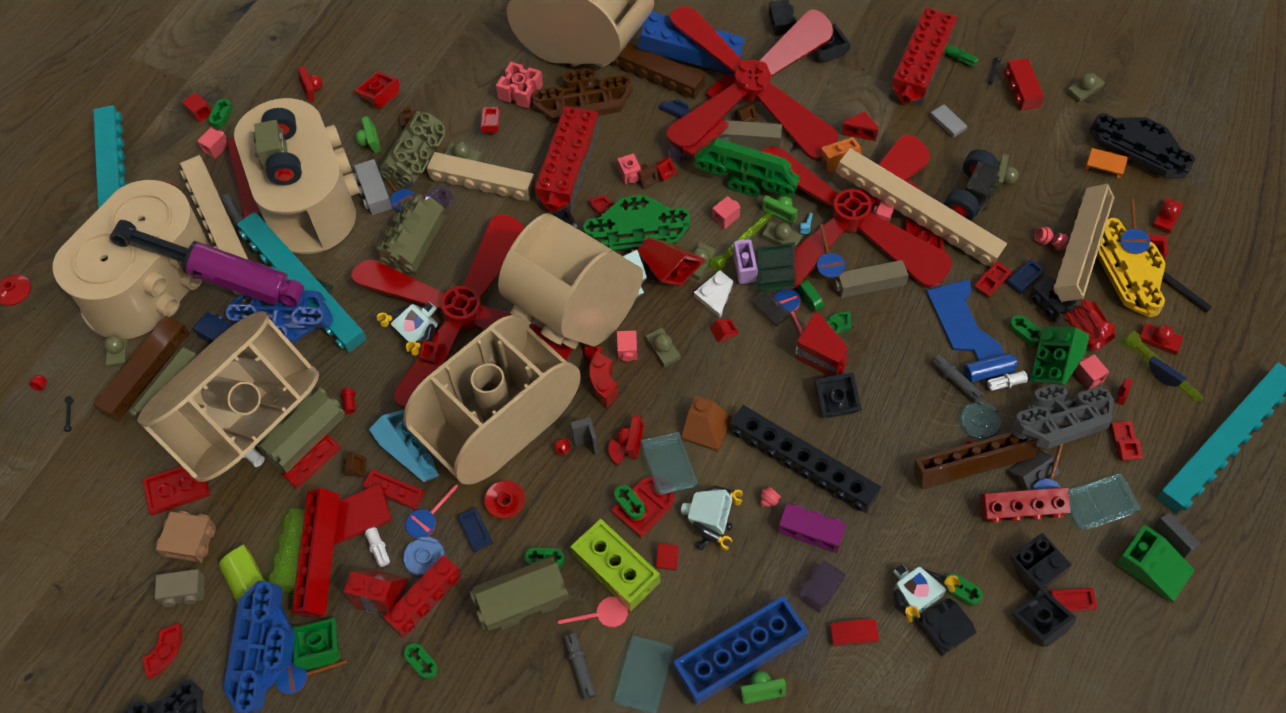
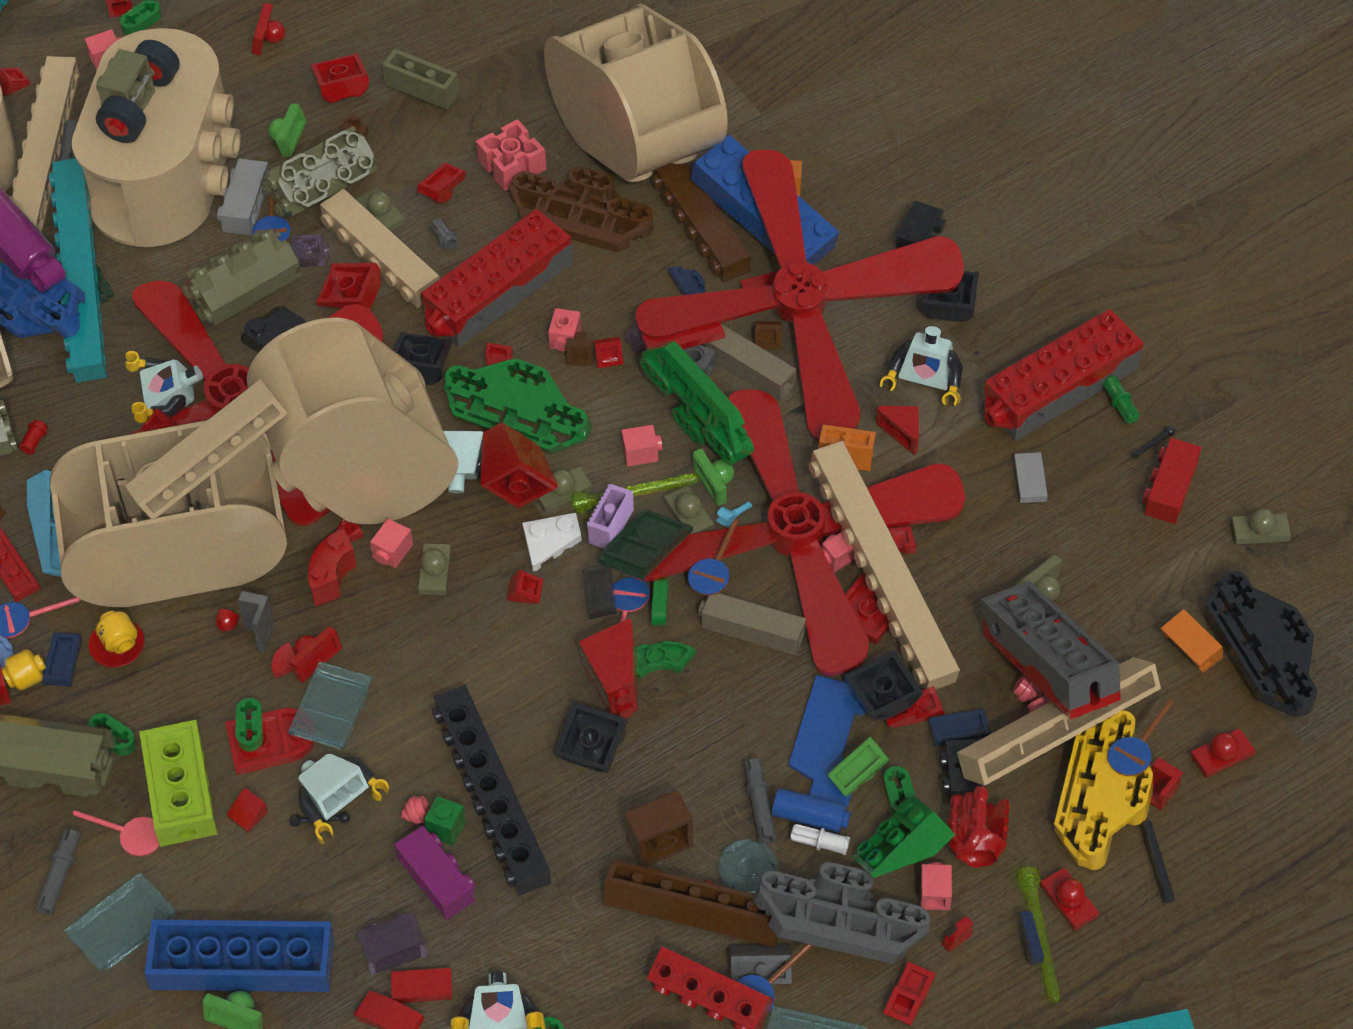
camera: 30 degrees right, 5 degrees down
(430, 67) = (421, 79): none -> olive brick
(455, 258) = (264, 329): none -> black slope
(458, 549) = (23, 669): none -> yellow head
(481, 206) = (350, 285): none -> red slope
(504, 492) = (116, 632): none -> yellow head
(515, 341) = (206, 449): none -> tan brick
(516, 151) = (446, 237): none -> dark grey pin
(706, 424) = (409, 684): dark orange slope -> none
(793, 492) = (445, 820): none -> green brick
(848, 84) = (927, 362): none -> torso
(857, 601) = (421, 985): none -> red tile
(922, 425) = (659, 829): none -> reddish brown brick
(976, 274) = (884, 687): none -> black slope
(983, 172) = (977, 577): brick -> none
(999, 327) = (858, 767): none -> bright green tile
(1055, 204) = (1051, 650): none -> dark grey piece

